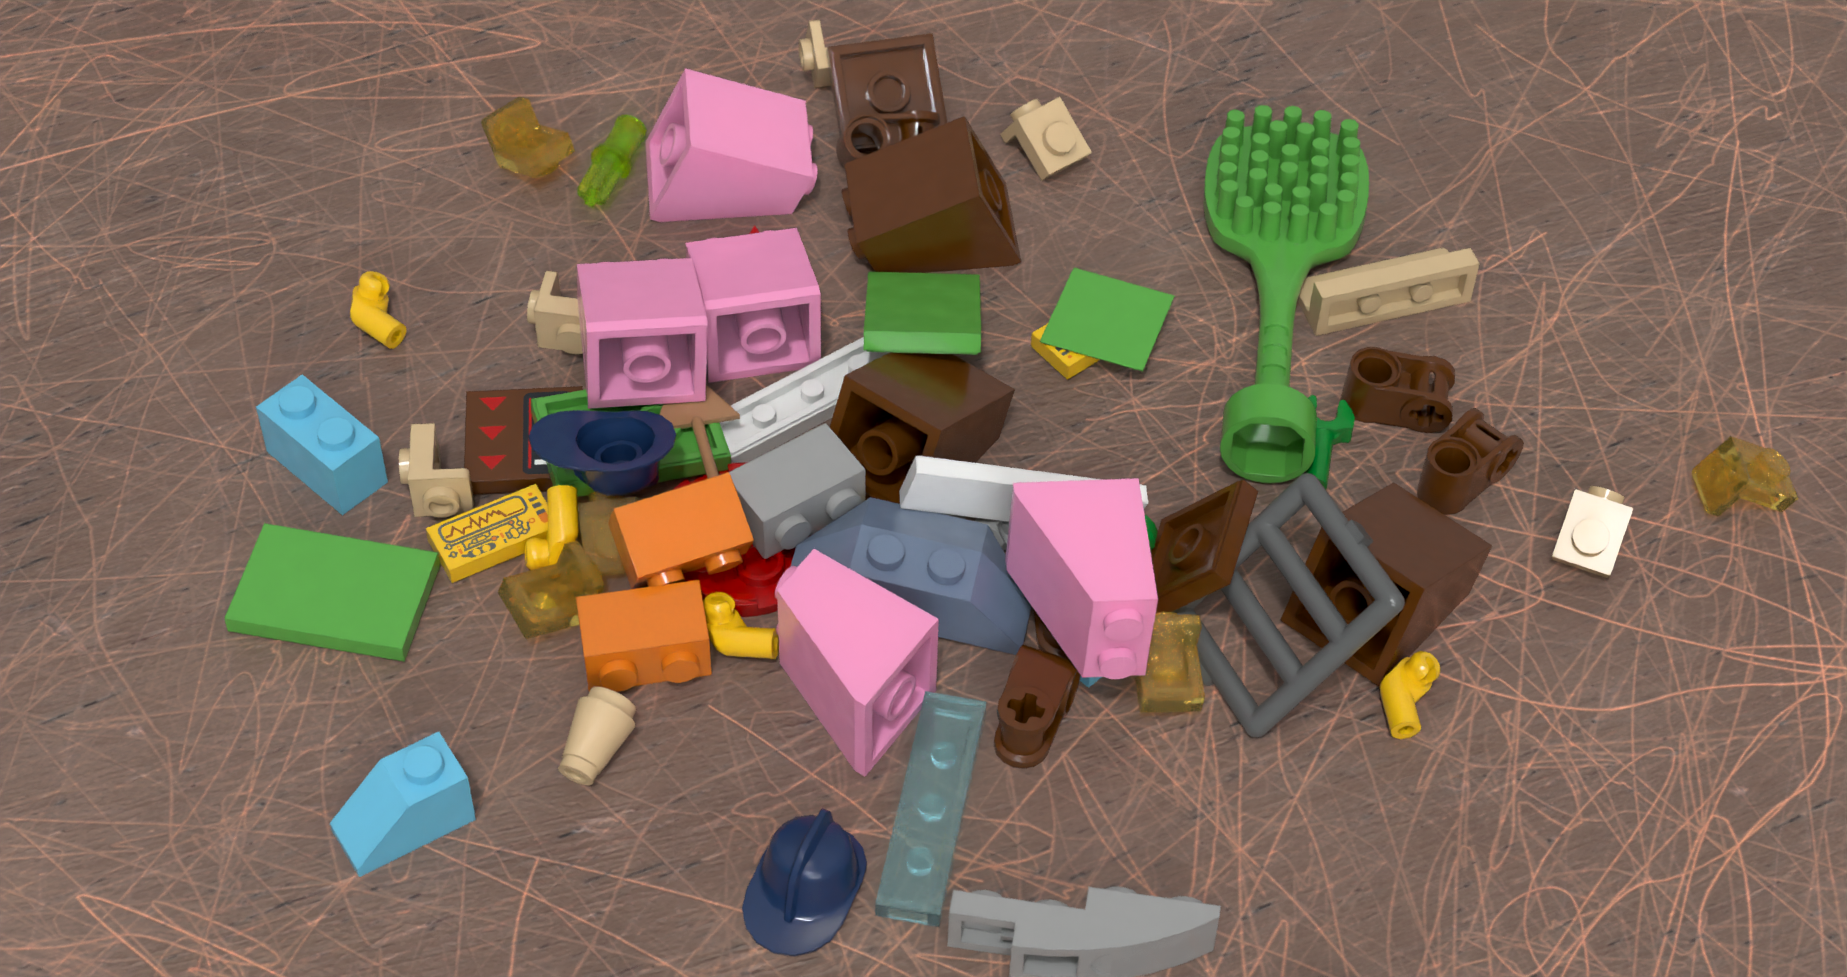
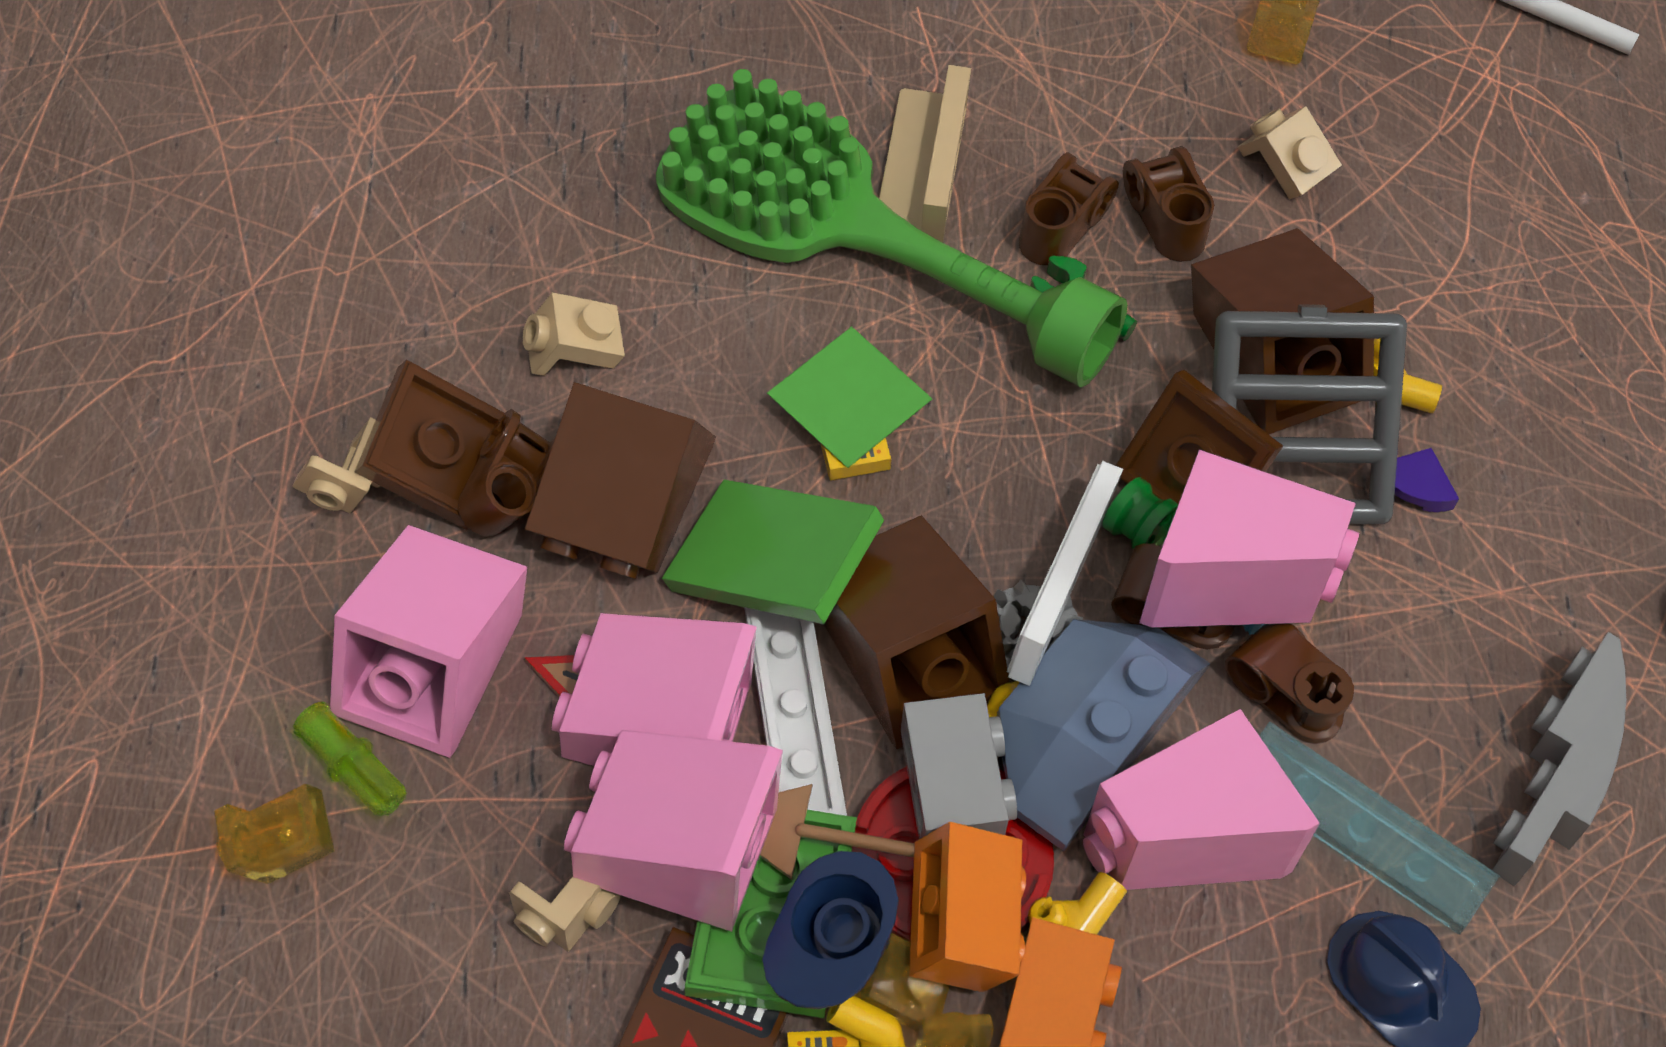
camera: 65 degrees left, 10 degrees up
(1308, 742) = (1424, 482): none -> dark purple tile

